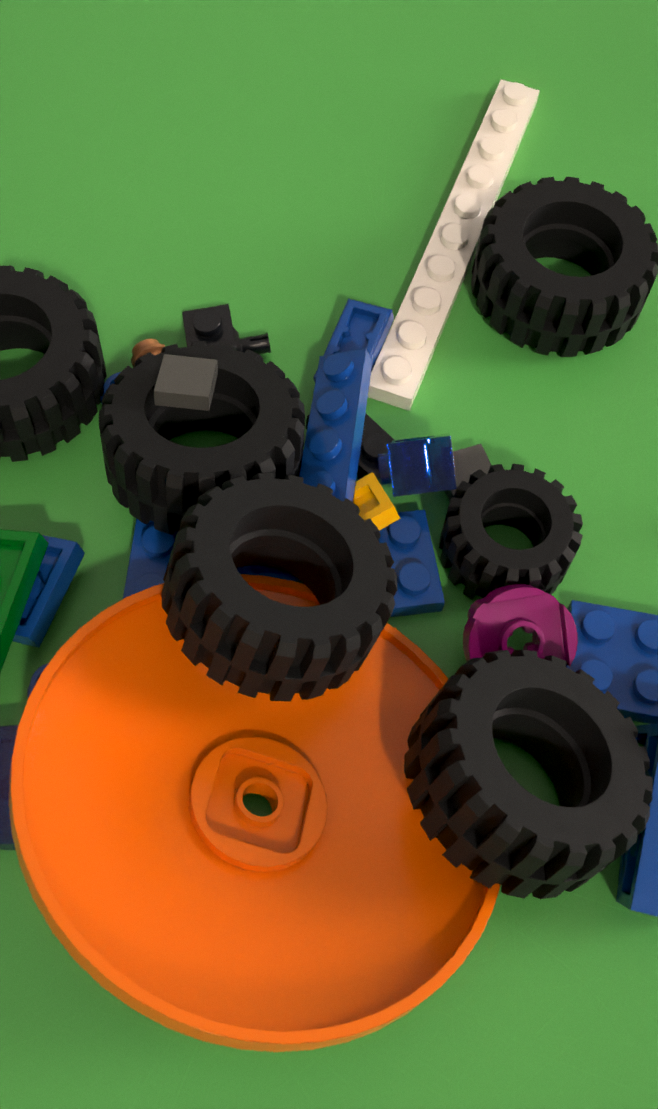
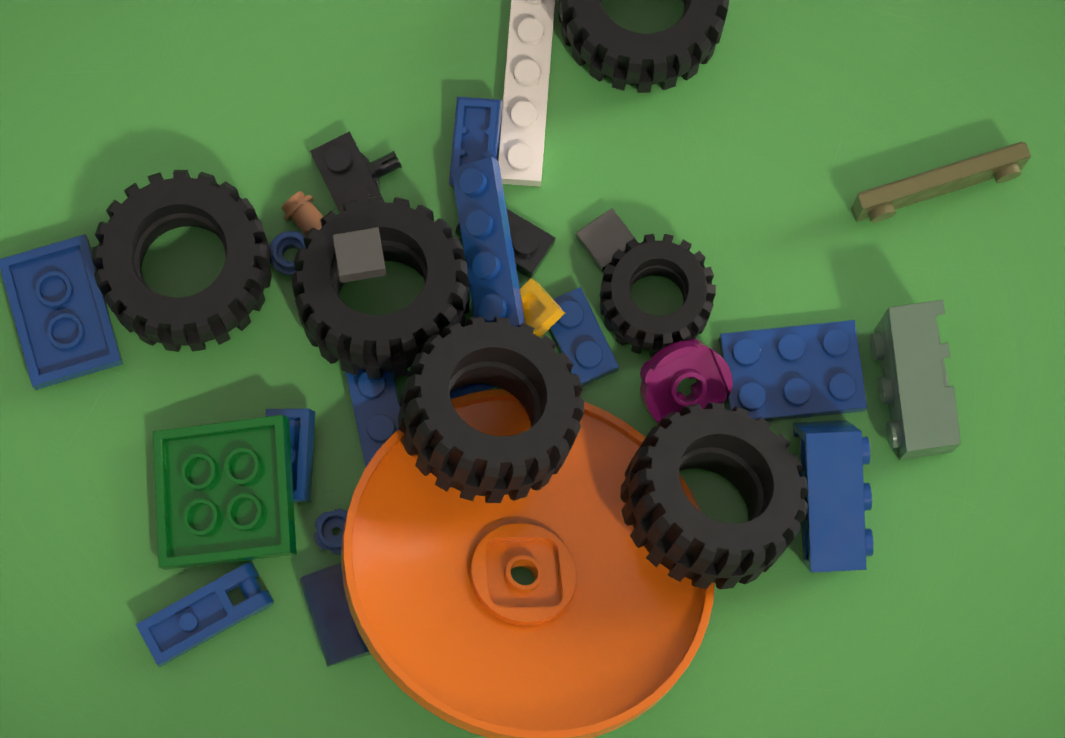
camera: 15 degrees left, 15 degrees up
(418, 465) = (566, 255): clear blue brick -> none

